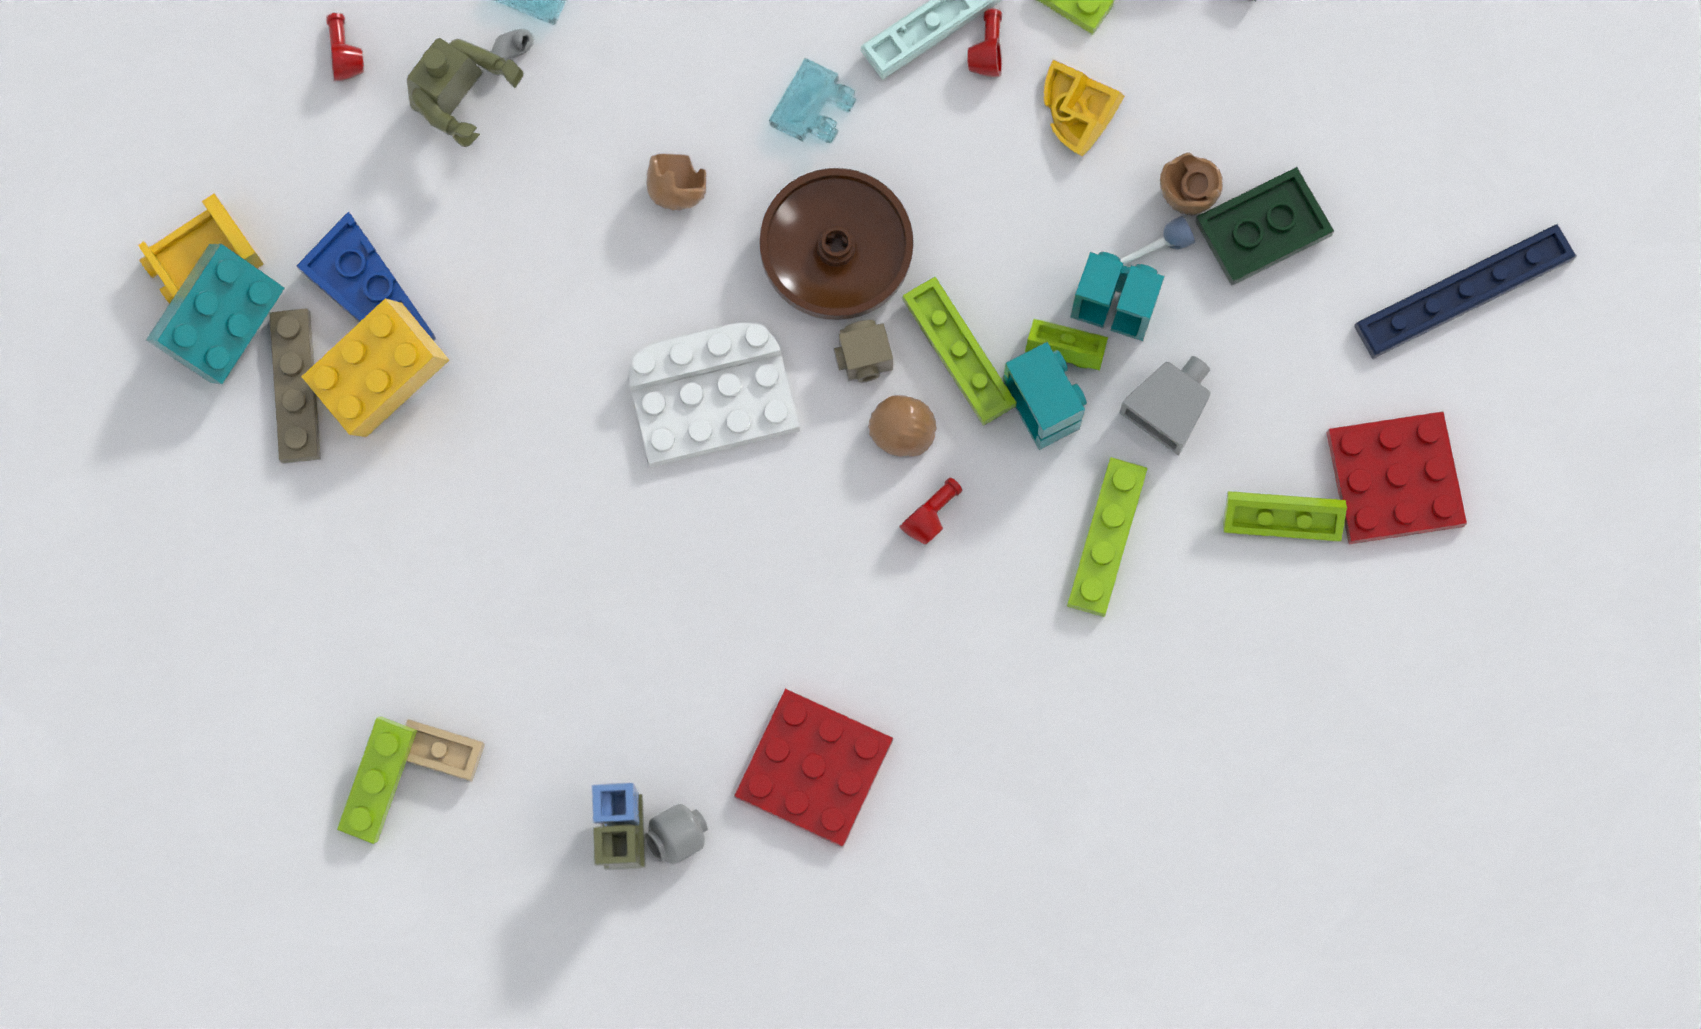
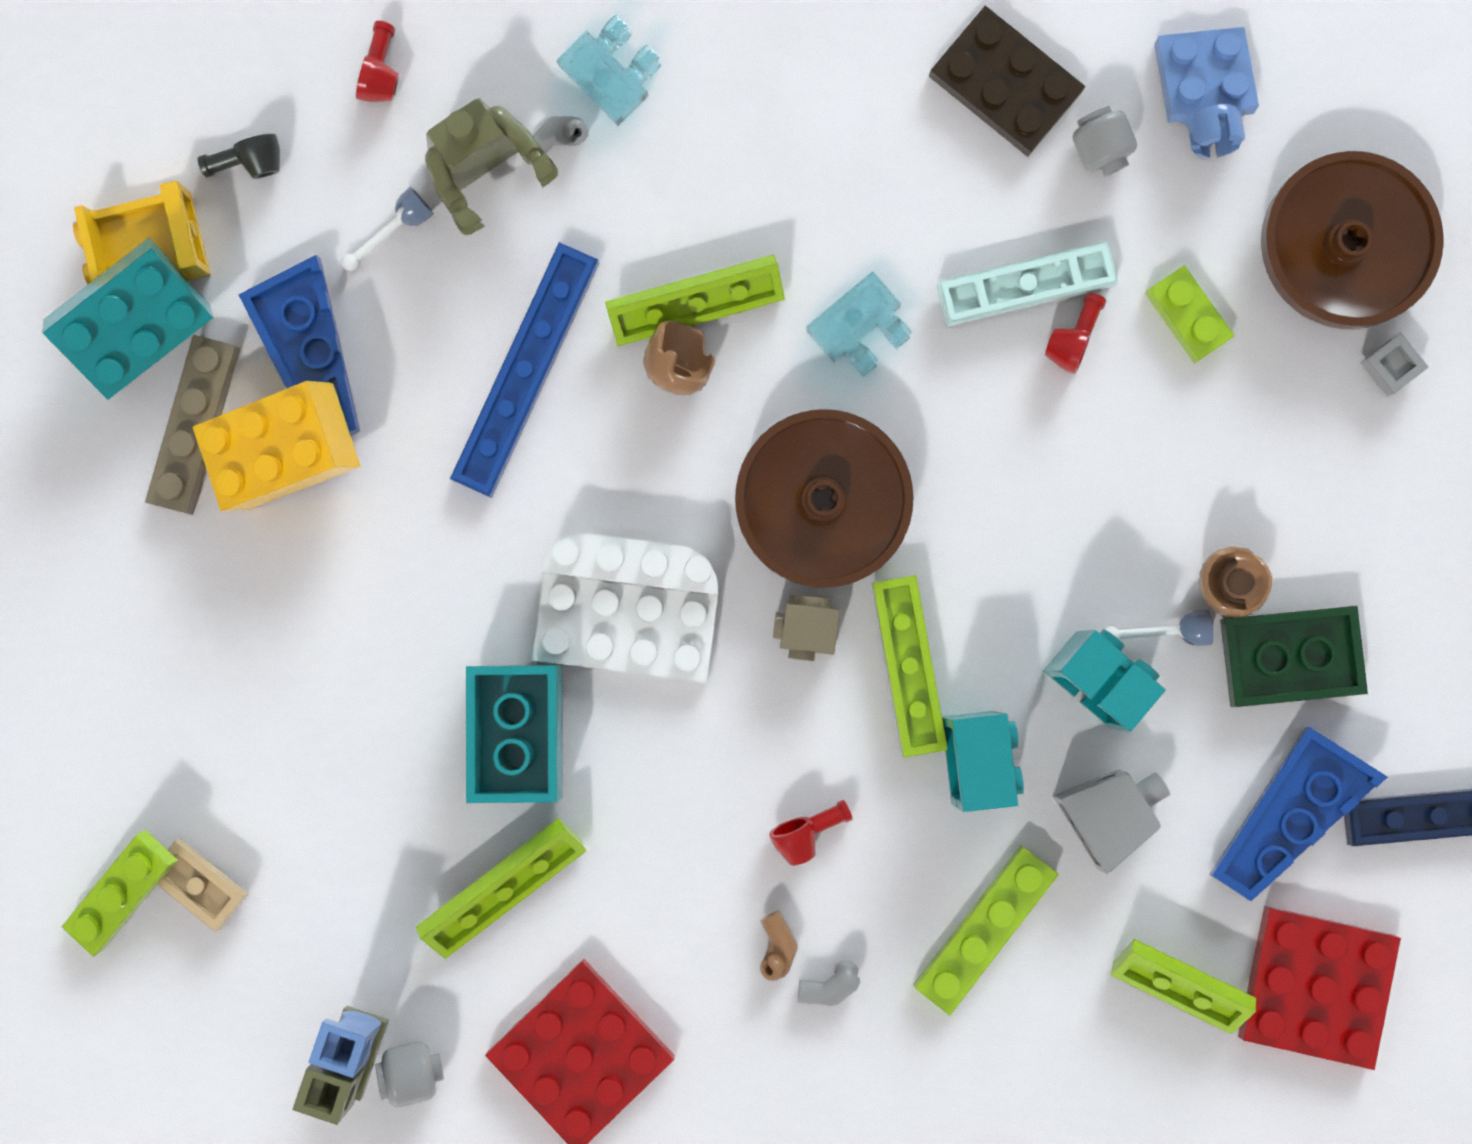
camera: 20 degrees right, 10 degrees up
(269, 152) = (257, 154): none -> pearl dark grey bar
(412, 150) = (409, 210): none -> hinge
(553, 241) = (525, 370): none -> blue tile
(658, 521) = (514, 734): none -> teal brick
(671, 131) = (696, 299): none -> lime plate
(695, 654) = (501, 888): none -> lime plate
(902, 426) = (816, 725): medium nougat hair -> none
(946, 615) = (781, 949): none -> medium nougat arm
(1002, 632) = (834, 989): none -> light grey arm
(1075, 345) = (1027, 705): lime plate -> none
(1078, 106) = (1146, 441): yellow brick -> none
(1317, 339) = (1294, 811): none -> blue wing

